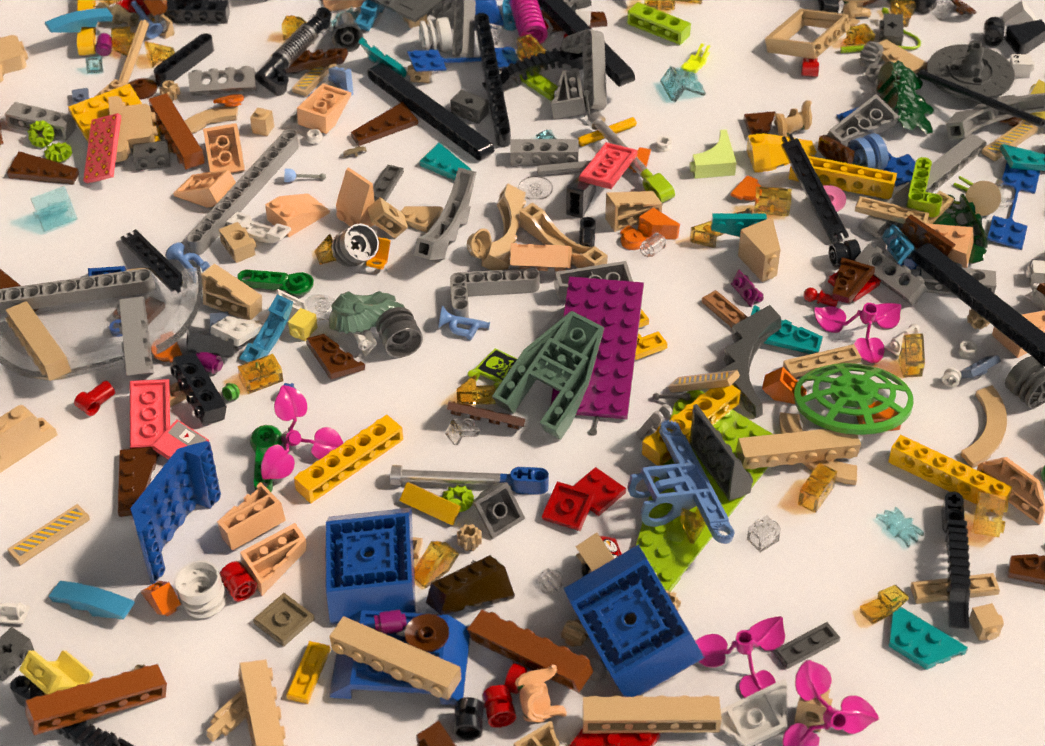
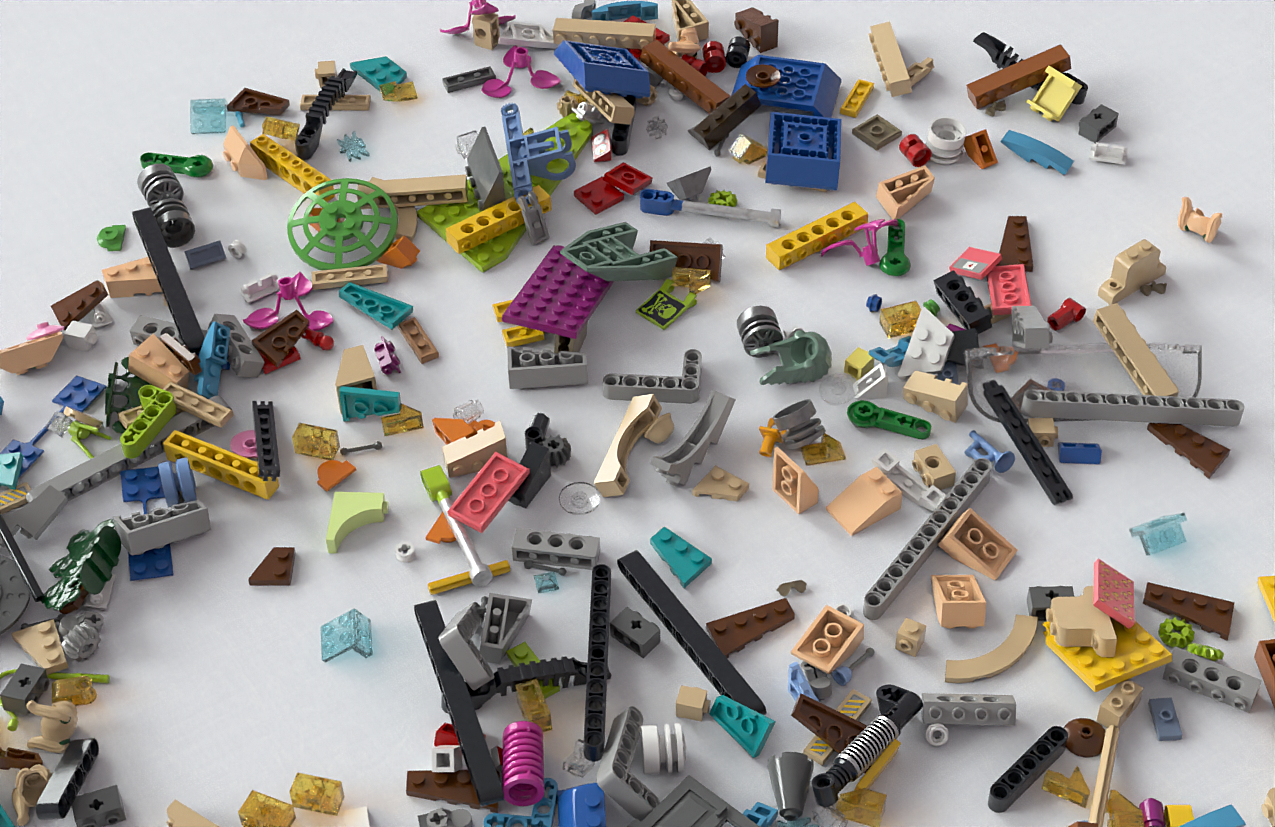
camera: 170 degrees left, 0 degrees up
(48, 534) = (1085, 209): tile -> none
(94, 65) = (1158, 781): clear light blue slope -> none
(171, 89) = (1041, 711): tan gear -> none
(173, 493) = (967, 189): blue slope -> none
(176, 132) = (1024, 627): dark orange brick -> none
(230, 100) = (955, 679): orange piece -> none
(273, 556) = (886, 161): light nougat wedge -> none
(290, 175) = (872, 556): hinge -> none
(331, 358) = (829, 327): reddish brown wing -> none
(387, 182) = (756, 536): dark grey tile -> none
(387, 218) = (757, 461): tan brick -> none
(390, 621) = (791, 85): magenta brick -> none
(395, 658) = (790, 64): tan brick -> none
(430, 503) = (747, 194): yellow tile -> none
(432, 61) = (676, 698): blue hinge -> none
(453, 320) = (709, 354): medium blue piece -> none
(469, 537) = (718, 165): tan gear -> none
(538, 224) = (585, 442): tan arch -> none
(541, 256) = (600, 396): light nougat wedge -> none
(562, 168) = (503, 527): light grey axle -> none
(567, 221) = (558, 448): none -> dark grey gear
(659, 23) = (316, 728): lime brick -> none
(685, 397) = (494, 249): dark grey hinge -> none
(696, 62) = (313, 678): neon yellow arm -> none
(704, 381) = (475, 246): tan tile -> none
(748, 338) = (428, 278): dark grey arch -> none
(767, 154) = (279, 522): yellow wedge -> none
(779, 42) = (165, 712): tan window -> none
(795, 120) = (239, 549): tan hair -> none
(810, 67) = (165, 647): red piece -> none
(817, 487) = (411, 166): clear yellow brick -> none
(834, 150) = (211, 499): reddish brown wing -> none
(849, 249) = (261, 377): black wheel -> none
(912, 355) = (264, 262): clear yellow slope -> none
(967, 344) = (203, 277): white bush -> none
(994, 430) = (228, 205): tan tile -> none

